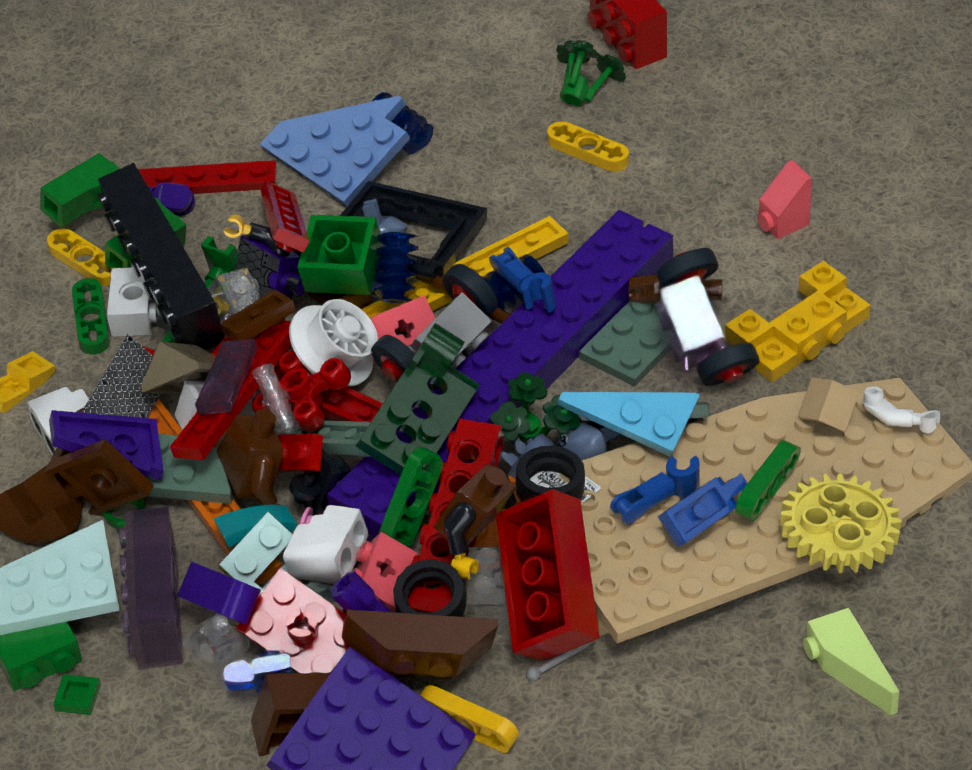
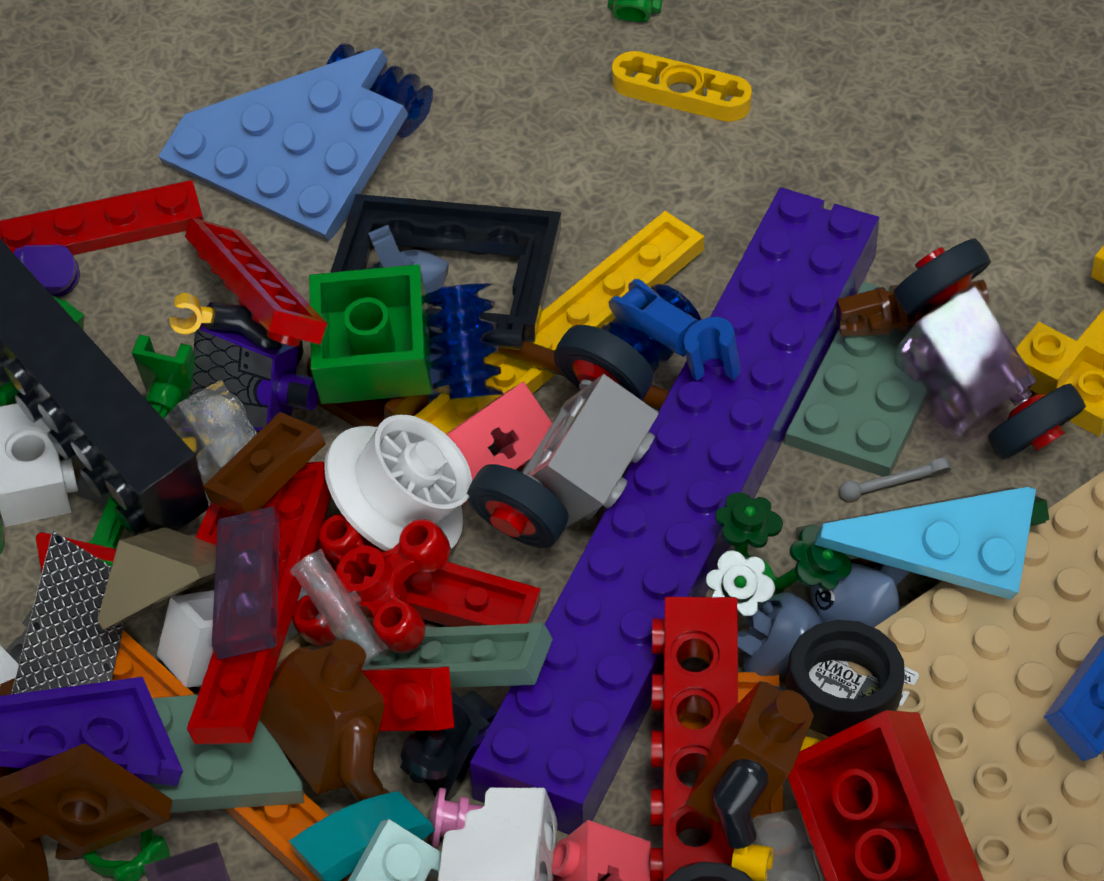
camera: 15 degrees left, 5 degrees up
(407, 484) = (622, 747): green beam -> none
(428, 366) = (586, 508): dark green hinge -> none
(659, 488) = (1021, 666): blue piece -> none
(662, 384) = (851, 490): none -> light grey hinge
(786, 202) = (1029, 134): coral slope -> none

